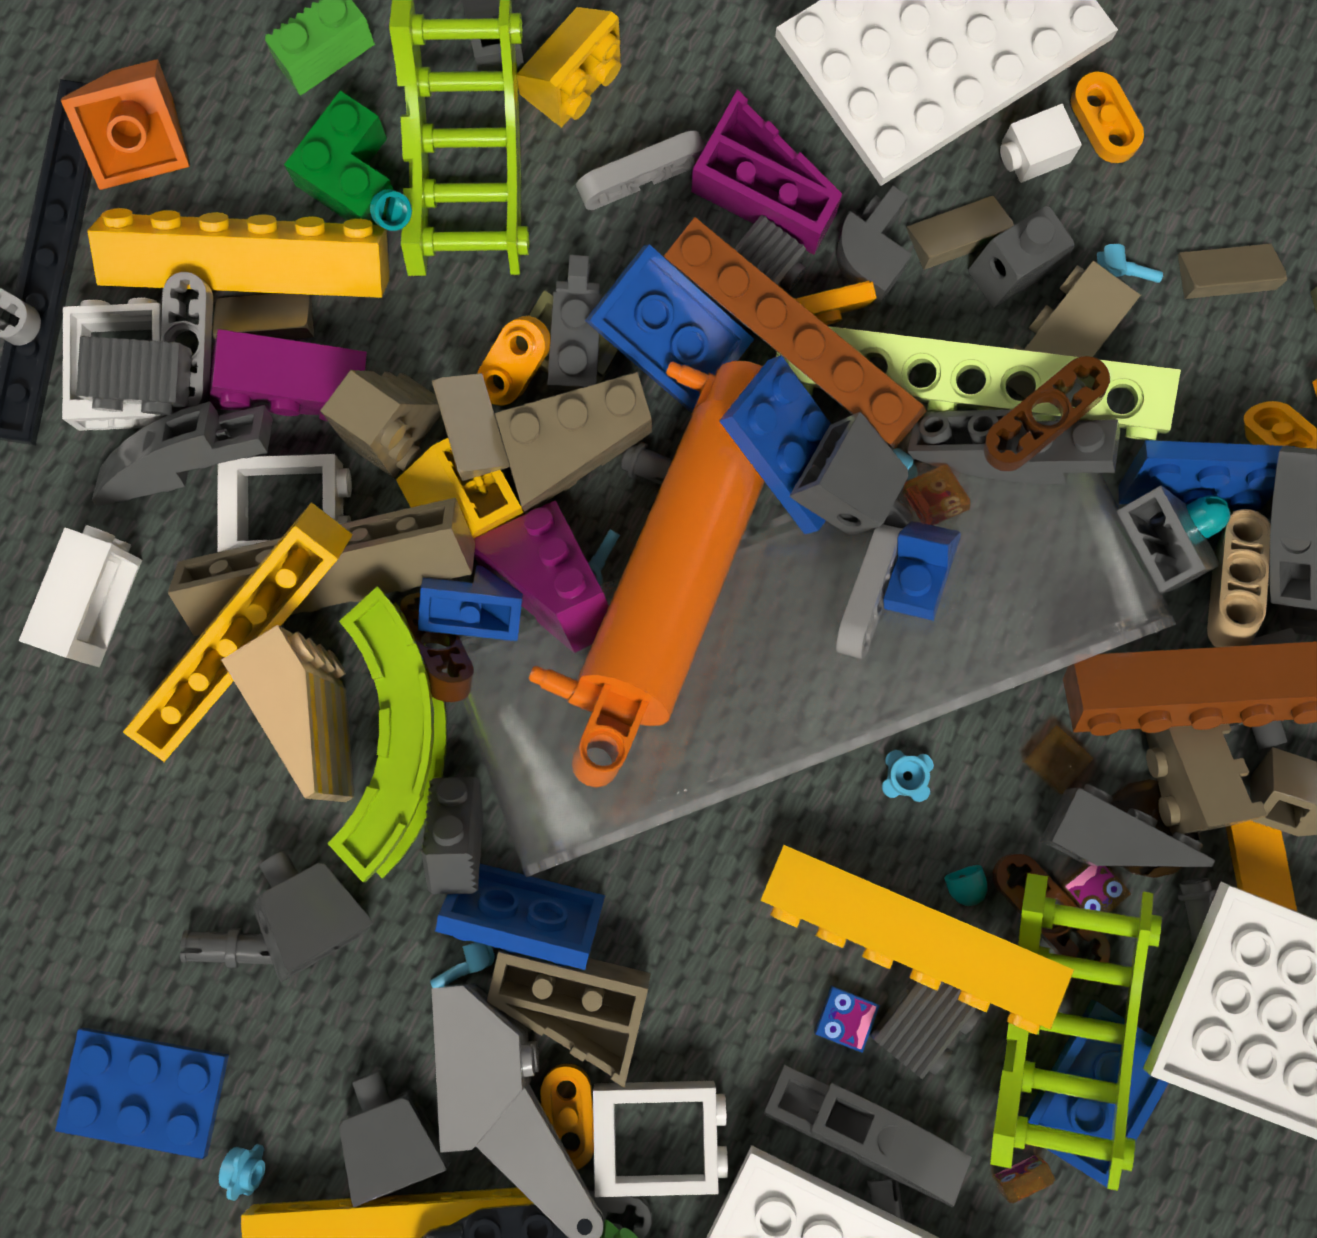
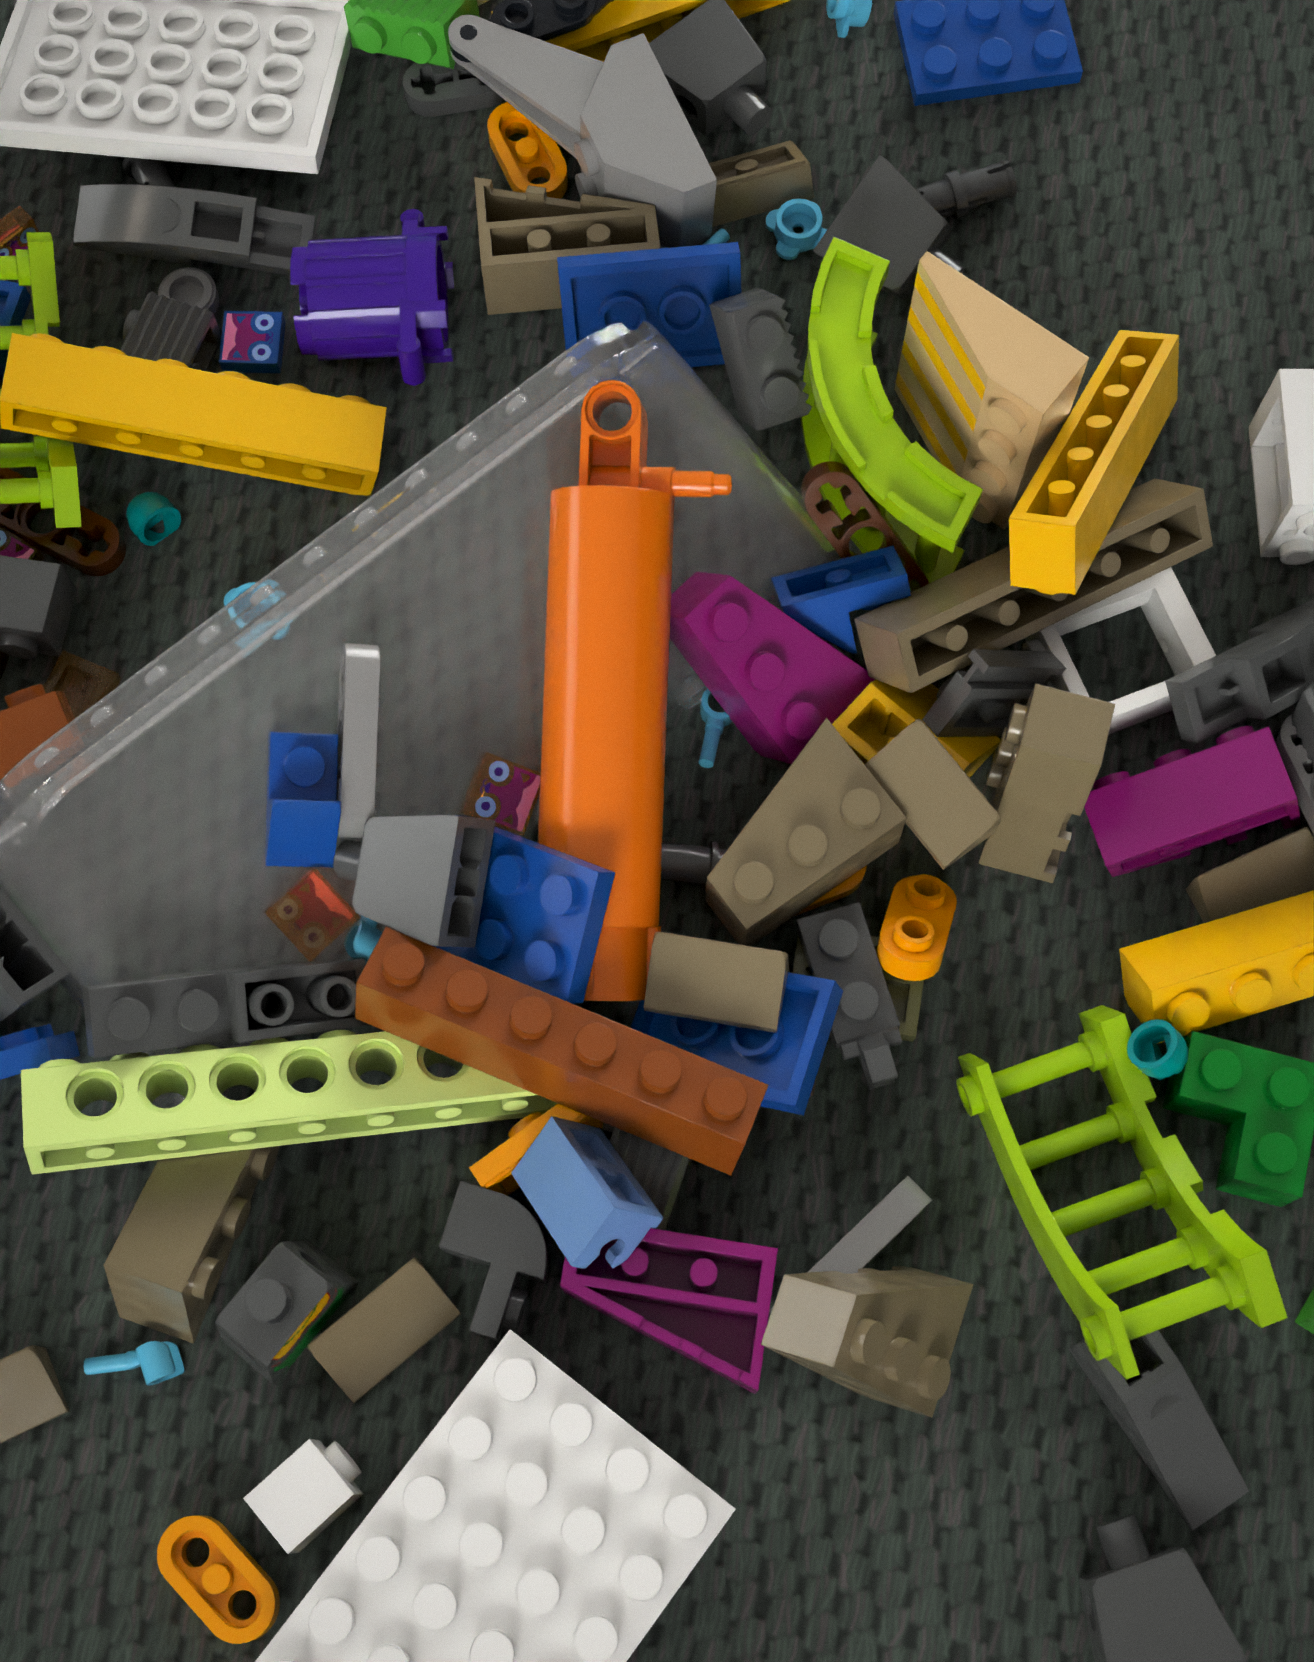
camera: 165 degrees right, 10 degrees down
(362, 974) = (795, 214): none -> medium azure plate
(388, 1026) = (760, 181): none -> dark tan slope
(389, 498) = (983, 697): none -> dark grey plate
(572, 64) = (1009, 1364): yellow slope -> none
(651, 95) = (872, 1331): none -> dark tan wedge
(670, 347) = (716, 981): none -> dark tan slope
(715, 1157) = (407, 118): white window -> none
(737, 1005) = (376, 297): none -> dark purple container
(773, 540) = (502, 793): none -> tile
(807, 243) = (585, 1193): none -> medium blue hinge
(887, 1082) = (191, 286): none -> light grey tile
(1063, 380) = (147, 1065): reddish brown beam -> none

